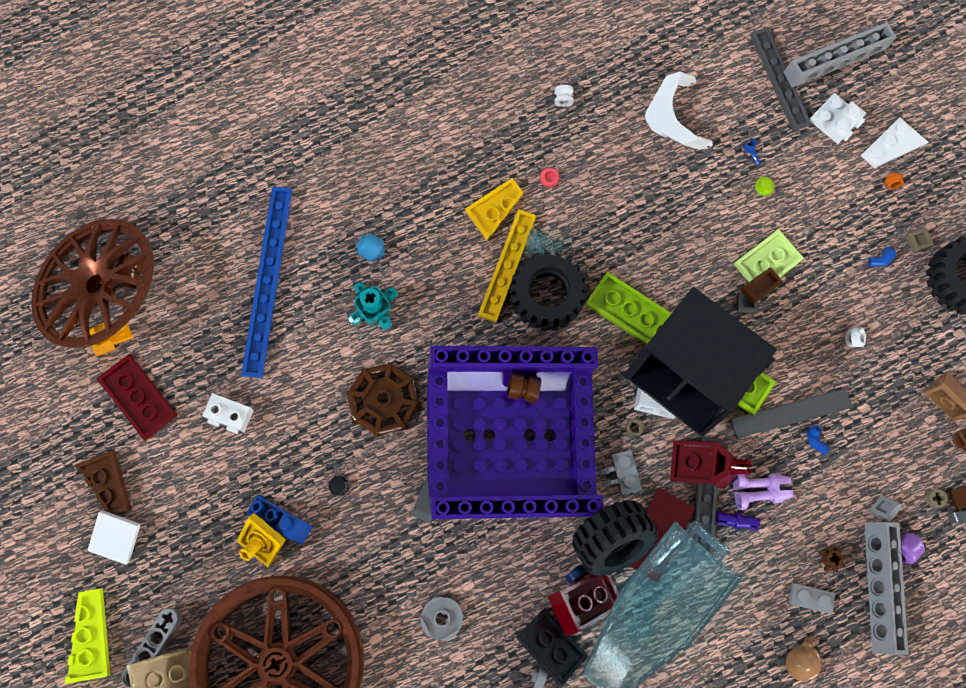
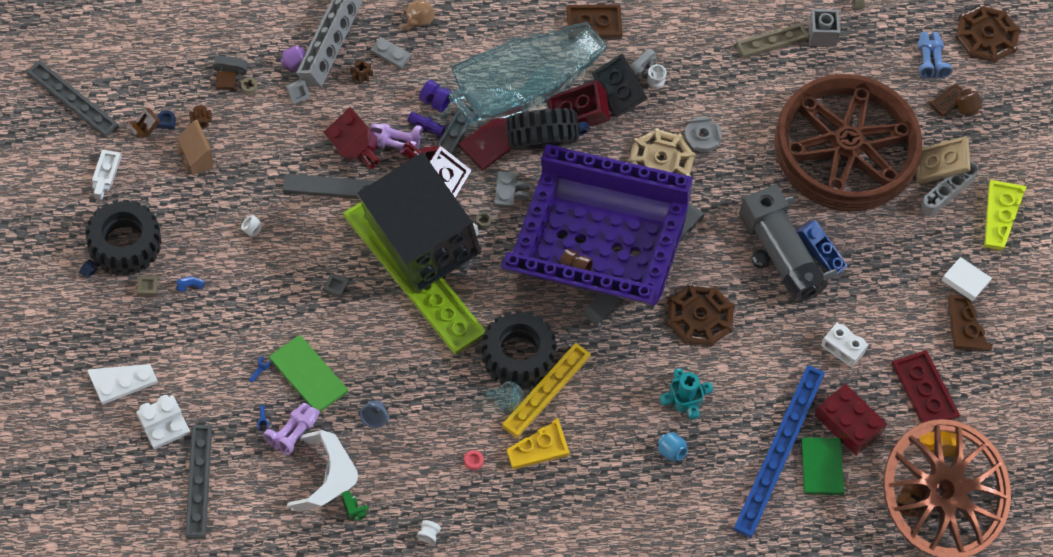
camera: 165 degrees left, 15 degrees down
(204, 332) = (850, 419): none -> dark red brick
(223, 281) = (822, 466): none -> green tile
(259, 541) = (841, 230): yellow plate -> none
(316, 502) = (766, 216): none -> dark grey piece
(469, 579) = (664, 148): none -> tan plate
(515, 679) = (656, 76): none -> white wheel
(640, 94) = (350, 504): none -> green bracket
(655, 188) = (374, 414): none -> sand blue piece
(720, 161) = (303, 418): none -> lavender piece
(732, 207) = (308, 374): none -> bright green tile
(745, 556) = (433, 94): none -> dark purple wheel
(761, 285) = (318, 291): reddish brown tile -> none
(764, 186) = (268, 382): lime plate -> none
(772, 252) = (297, 316): yellowish green tile -> none
(778, 197) = (261, 367): none -> blue hand
(802, 468) = (353, 139): none -> dark red plate
(813, 435) = (330, 160): blue arm -> none
(839, 54) = (133, 473): light grey brick -> none
(894, 178) = (140, 345): orange plate -> none

